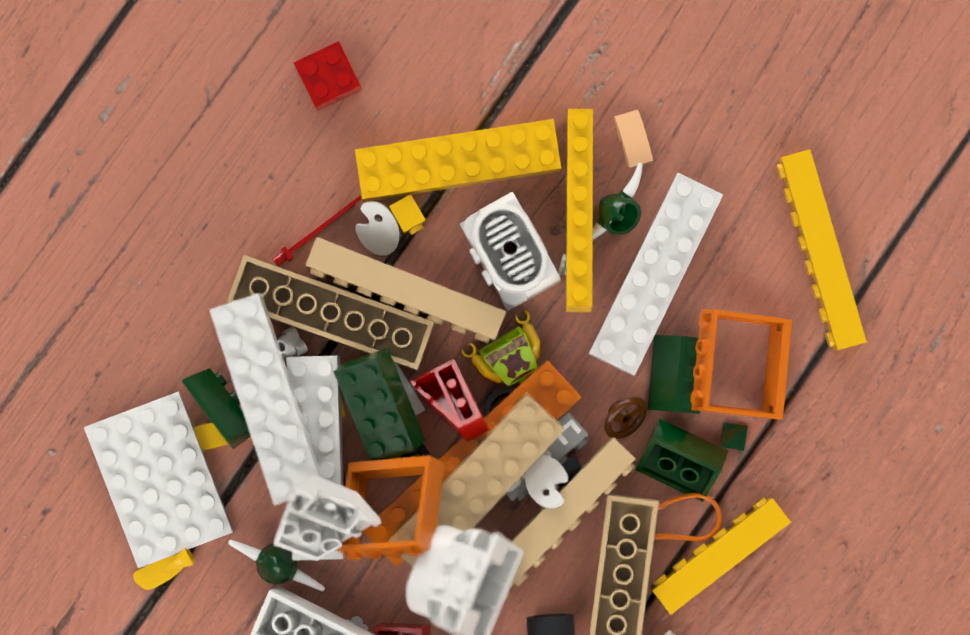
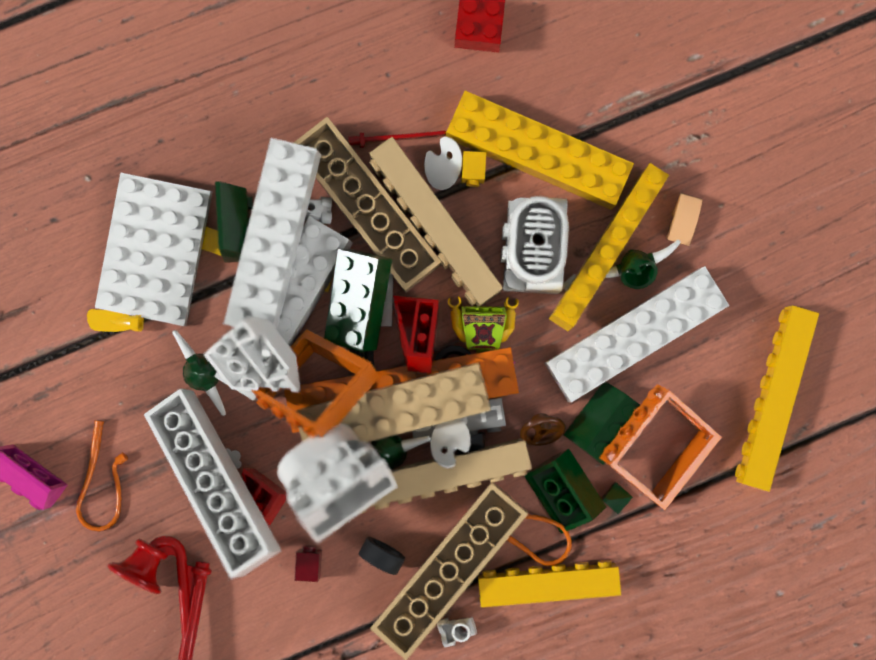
camera: 30 degrees right, 0 degrees up
(500, 519) = (395, 449): none -> dark green helmet

